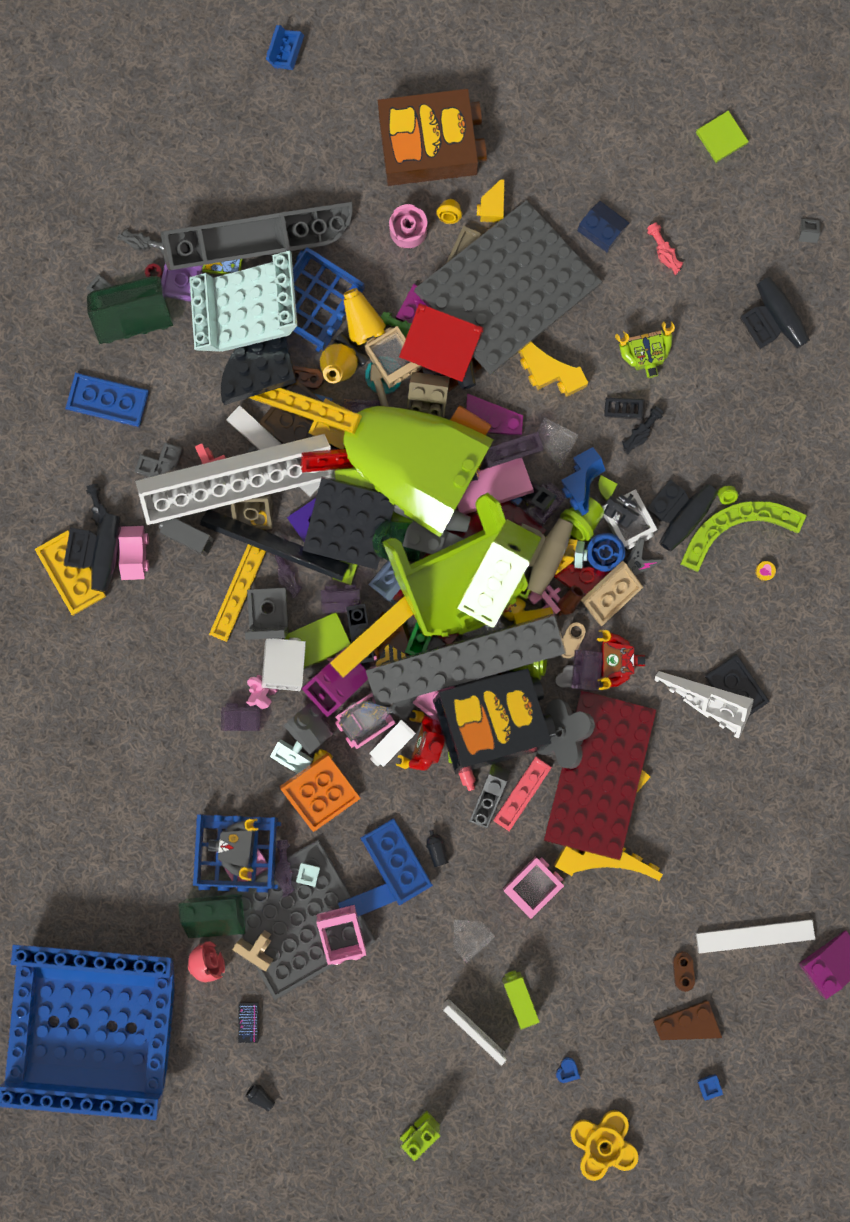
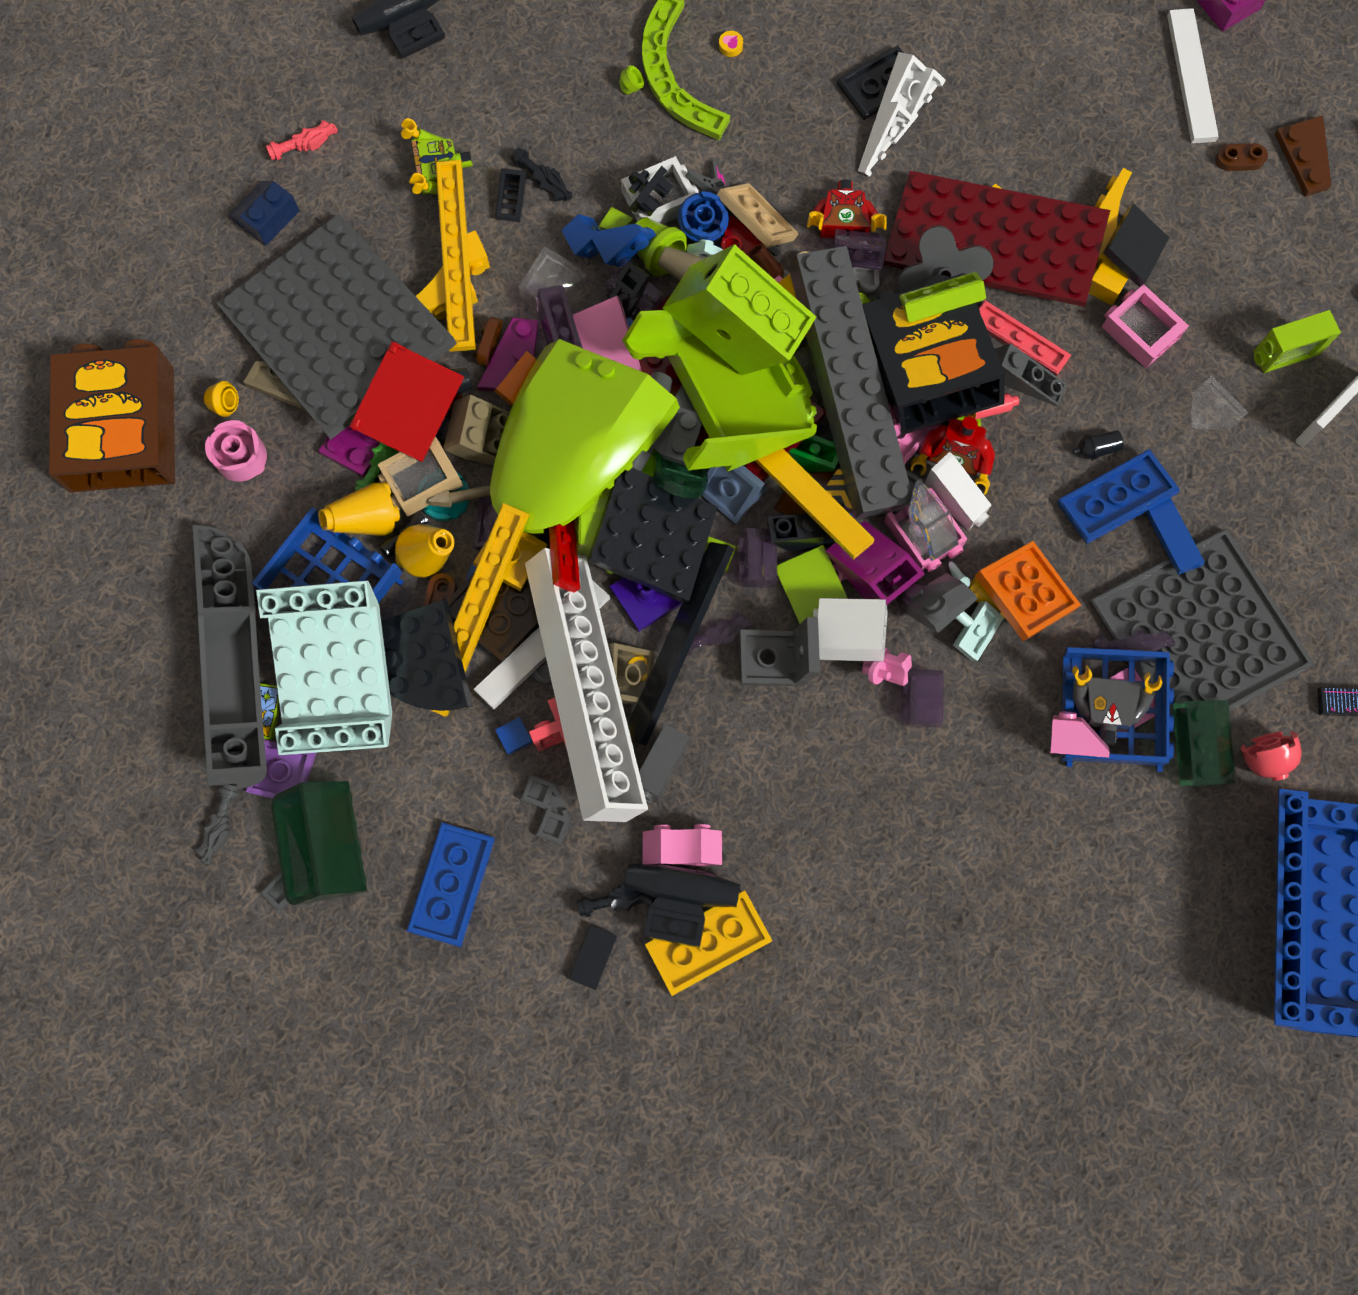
camera: 90 degrees left, 10 degrees down
(60, 497) = (593, 957): none -> black tile
(151, 267) = (256, 811): dark red bush -> none
(208, 821) = (1075, 737): none -> bright pink slope
(209, 435) = (513, 736): none -> blue tile
(237, 593) = (743, 702): yellow tile -> none
(255, 953) = (1253, 677): tan bracket -> none
(308, 874) = (1142, 610): light aqua plate -> none
(330, 746) = (958, 574): none -> light aqua animal
(338, 917) = (1205, 568): bright pink window -> none
(492, 204) = (219, 343): yellow slope -> none
(510, 400) = (491, 333): none -> reddish brown plate
(530, 726) = (943, 296): none -> lime slope
(567, 369) = (455, 254): none -> yellow tile
(597, 881) = (1136, 245): none -> black tile
(681, 512) = (652, 132): black plate -> none
(722, 136) = (160, 68): lime tile -> none

